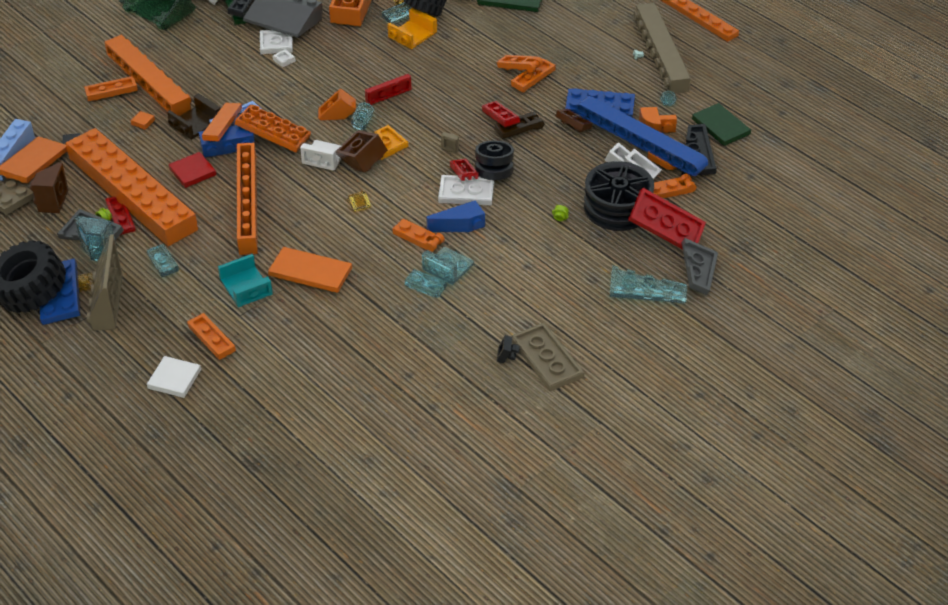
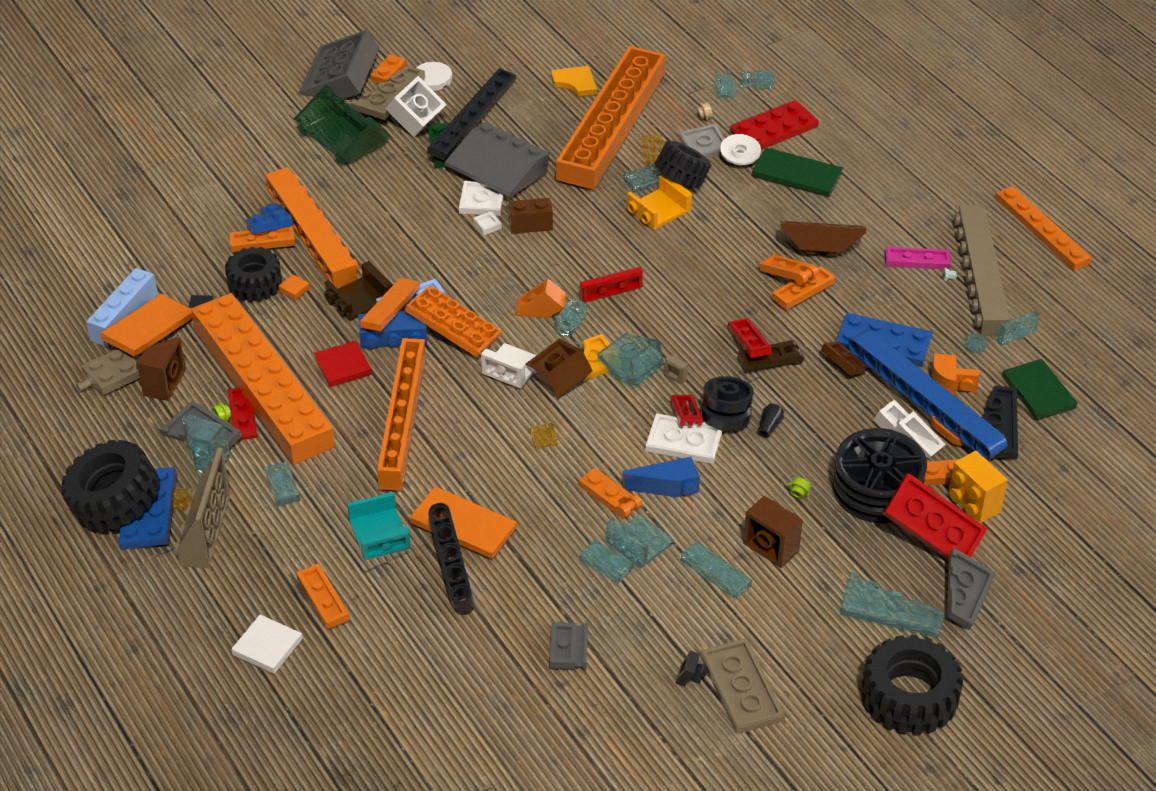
camera: 10 degrees right, 0 degrees up
(109, 113) = (253, 274): none -> black tyre
(114, 73) = (270, 218): none -> blue plate
(307, 295) = (455, 567): none -> black beam
(316, 48) = (530, 215): none -> reddish brown slope
(410, 345) = (568, 645): none -> dark grey plate
(416, 138) = (632, 358): none -> clear light blue slope
(510, 278) = (716, 570): none -> clear light blue plate
(528, 168) = (771, 417): none -> black cone
(540, 37) = (822, 236): none -> reddish brown wedge
(548, 244) = (772, 531): none -> reddish brown brick
(615, 45) = (917, 258): none -> dark pink tile
(674, 354) = (904, 709): none -> black tyre
(693, 193) = (977, 487): none -> light orange brick
(697, 84) = (1018, 328): none -> clear light blue plate

